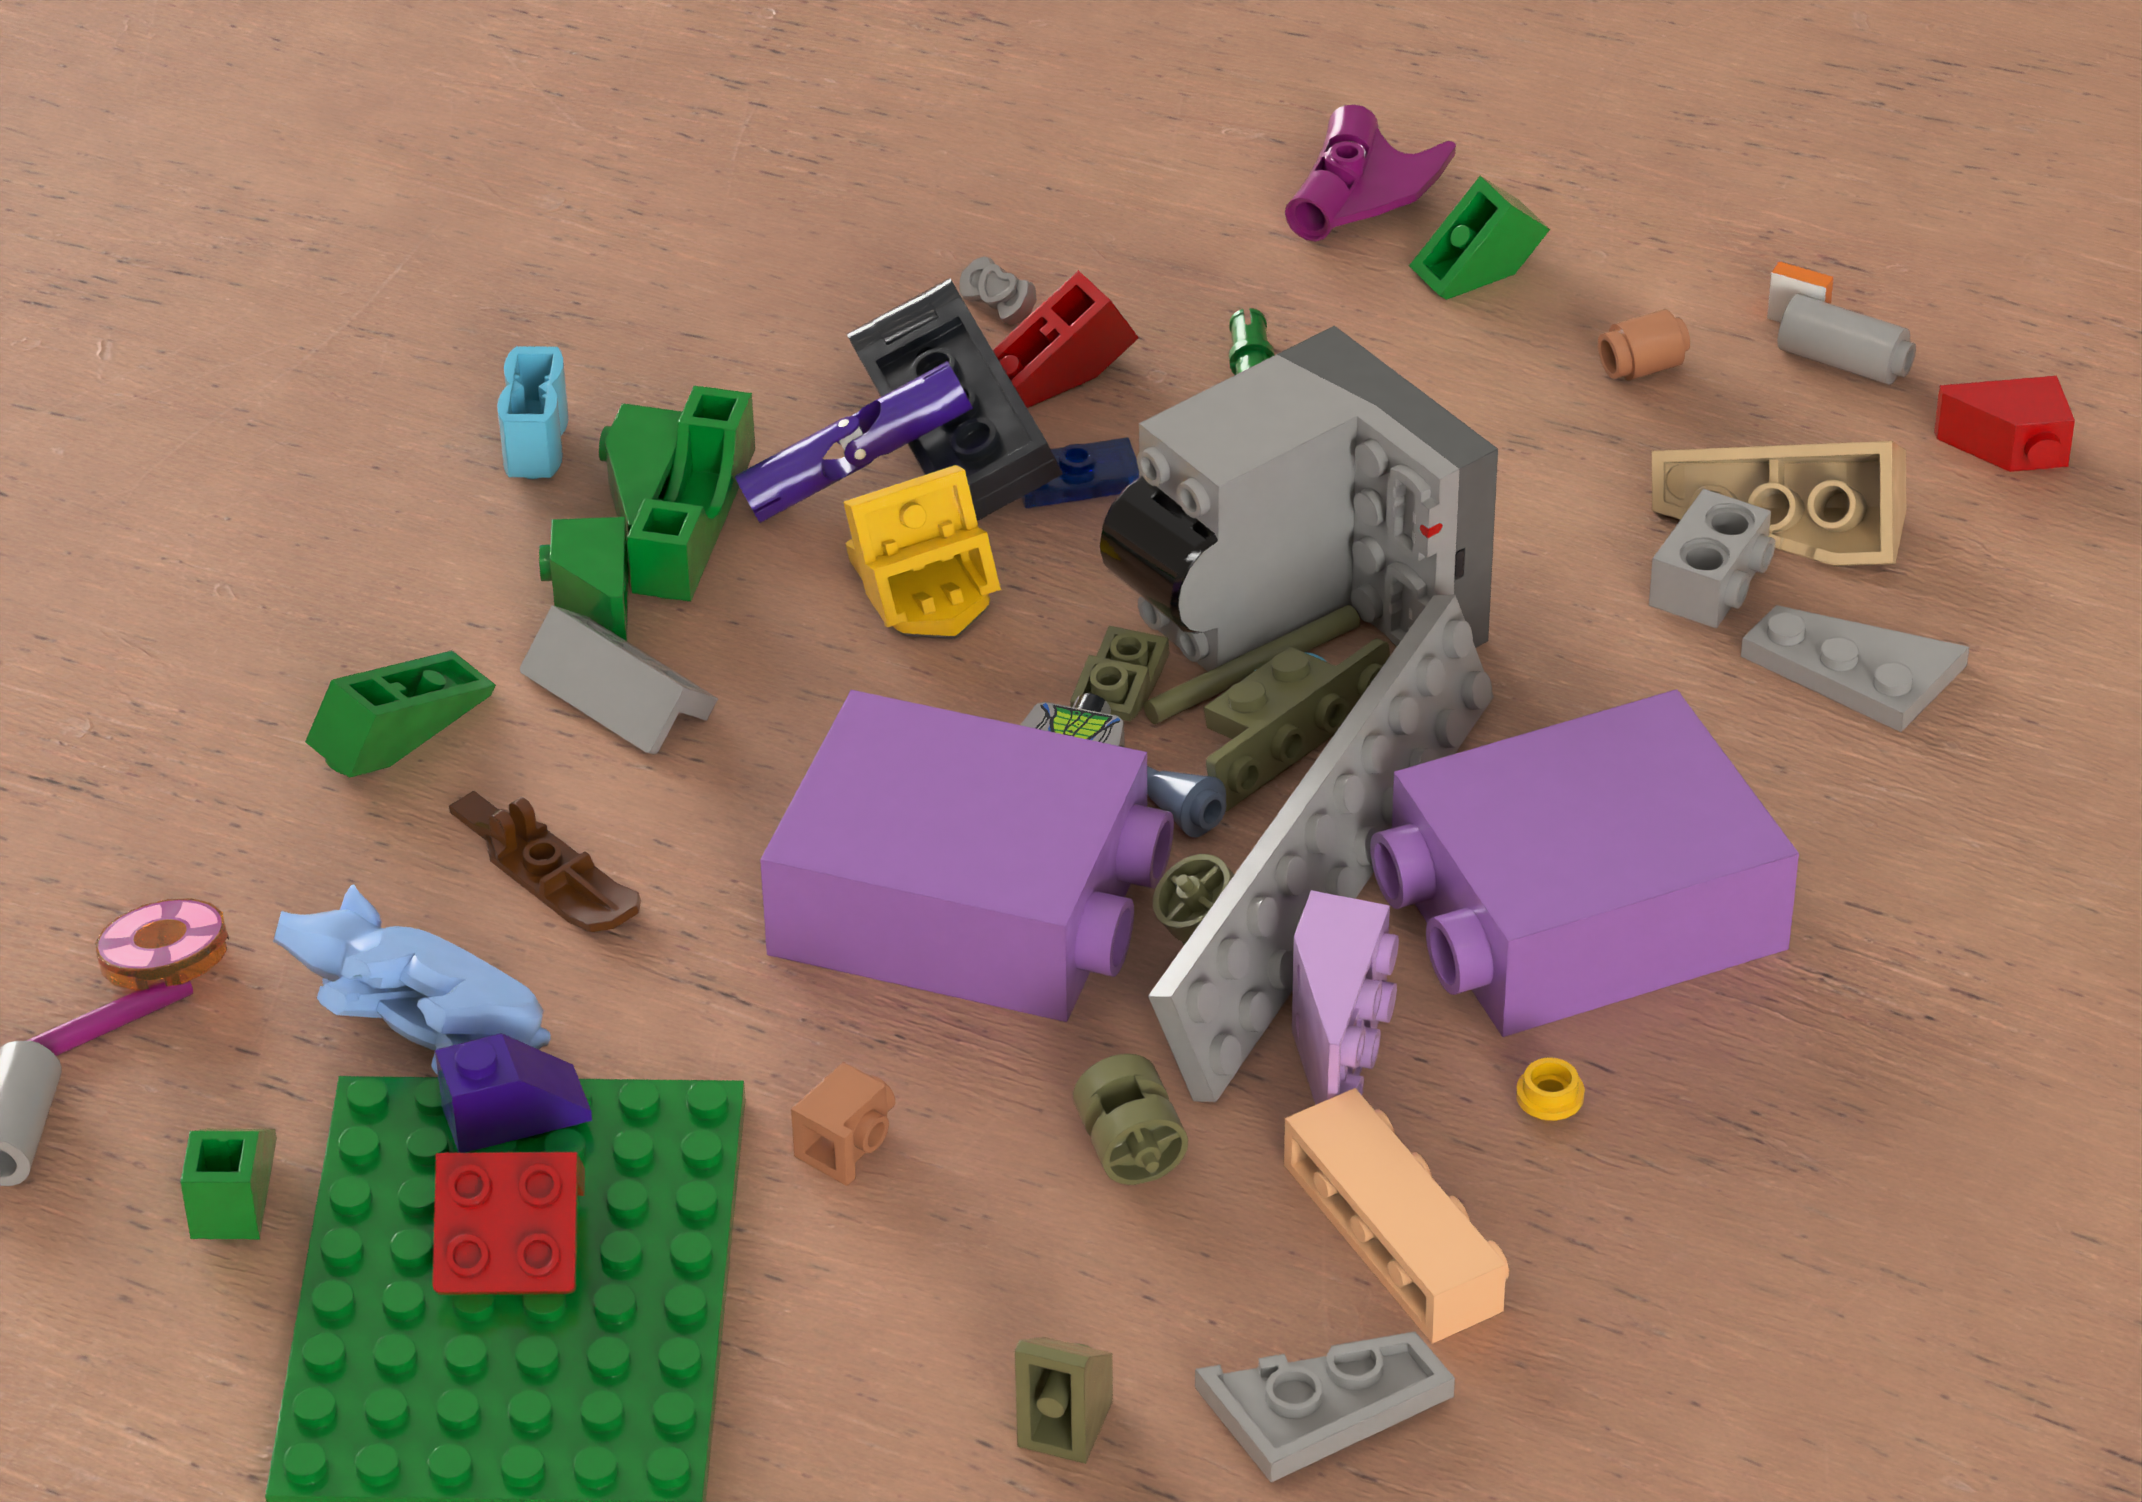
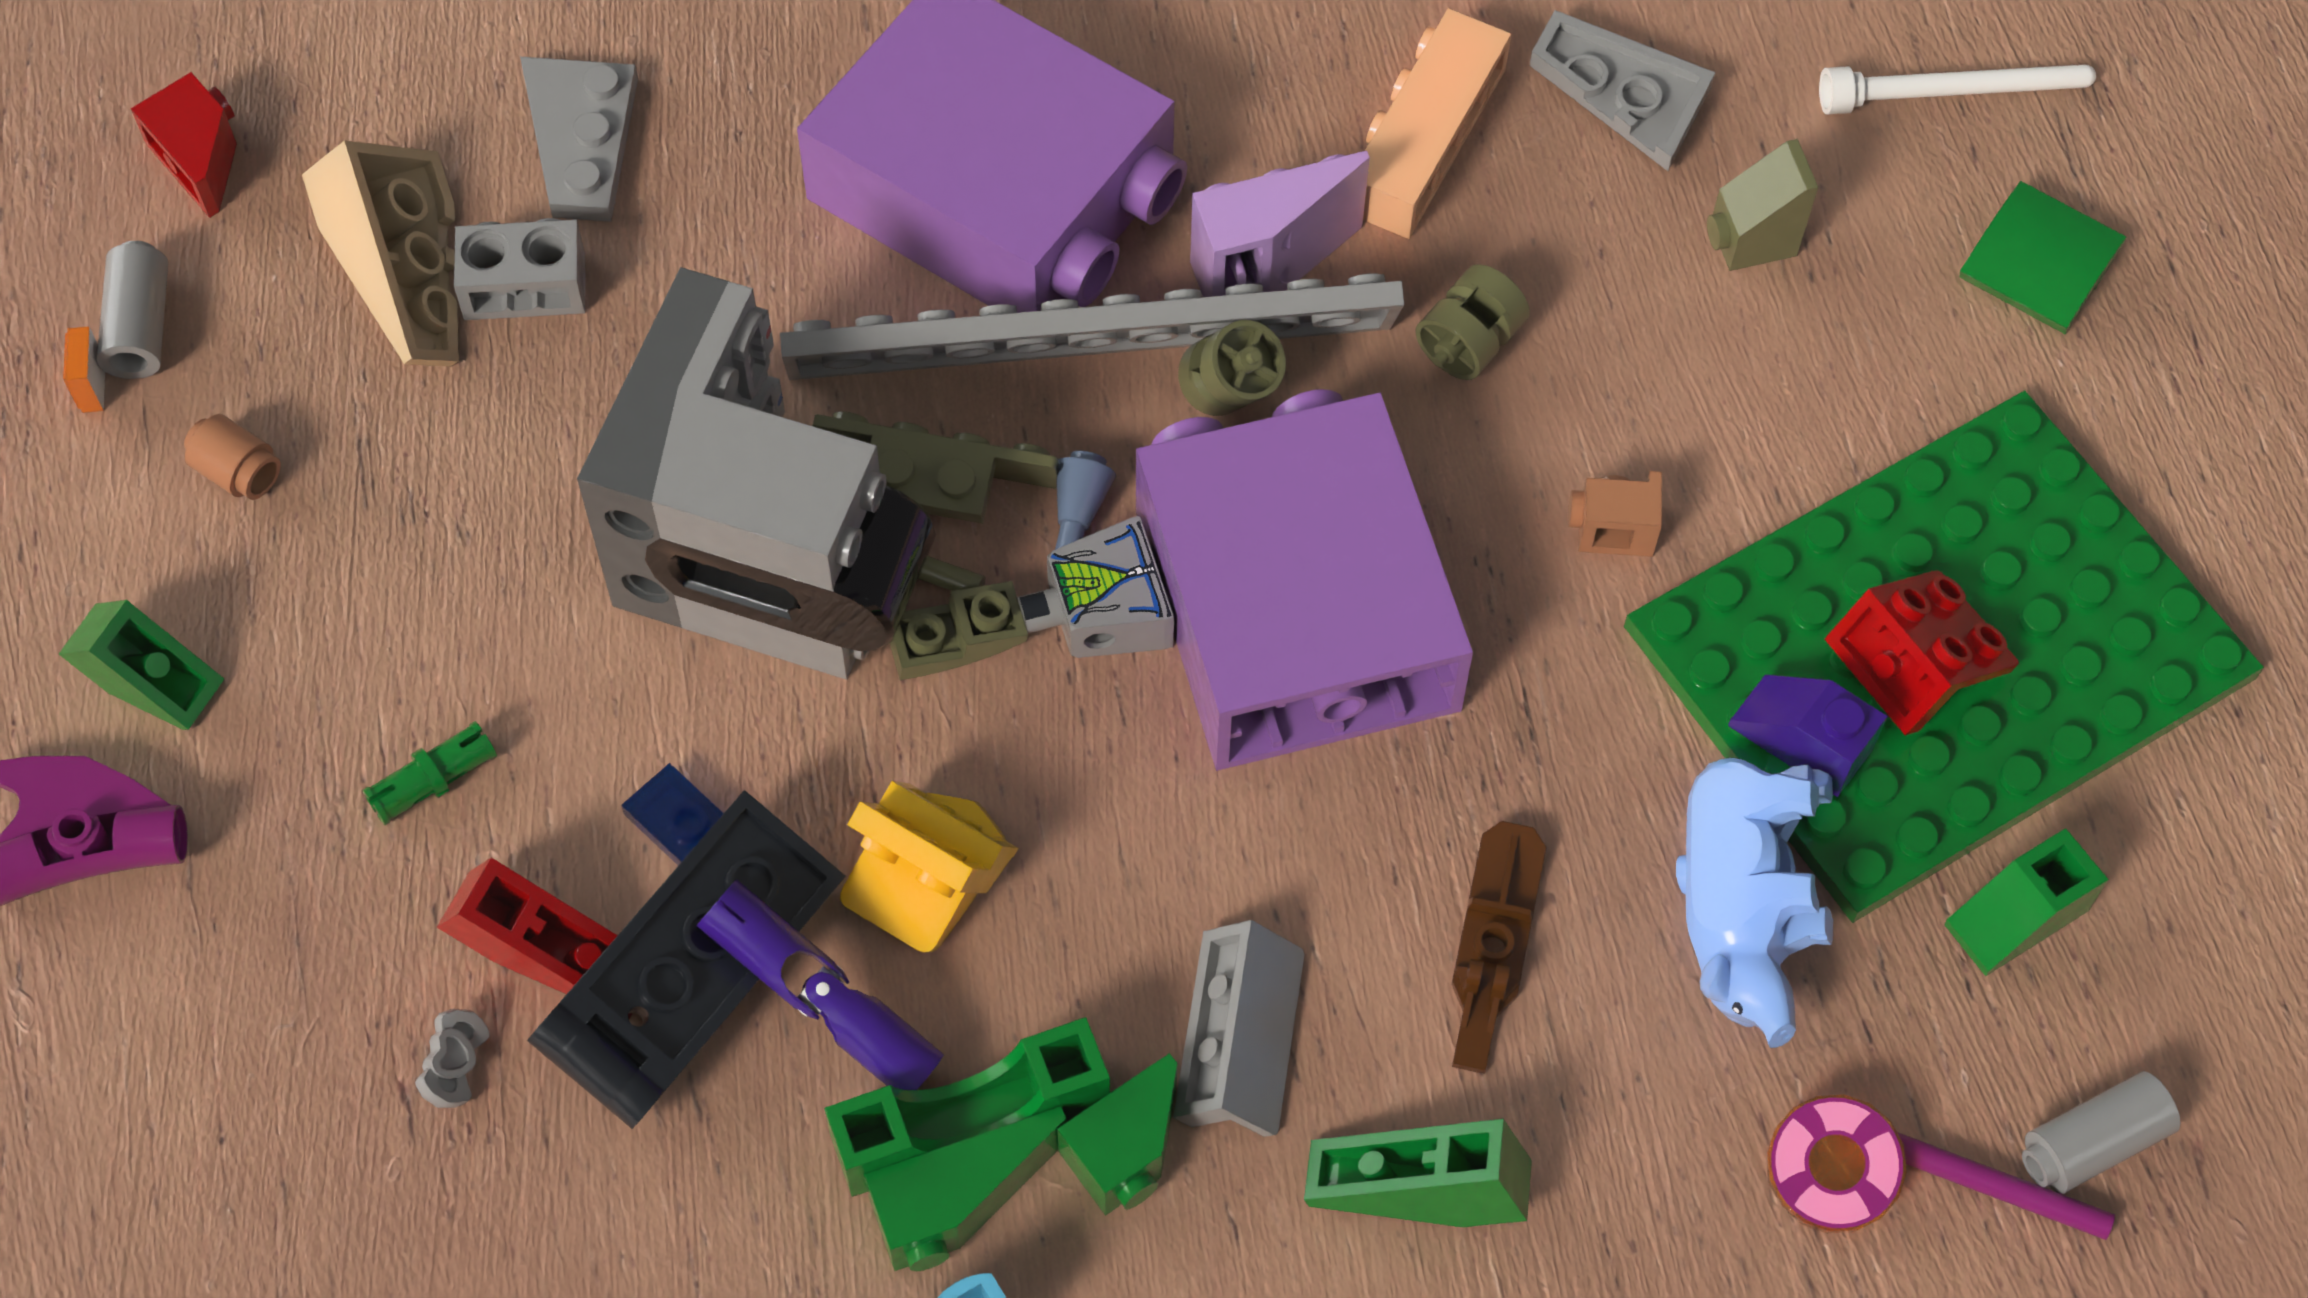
camera: 125 degrees left, 20 degrees up
(1550, 1089) = (1222, 87): yellow plate -> none

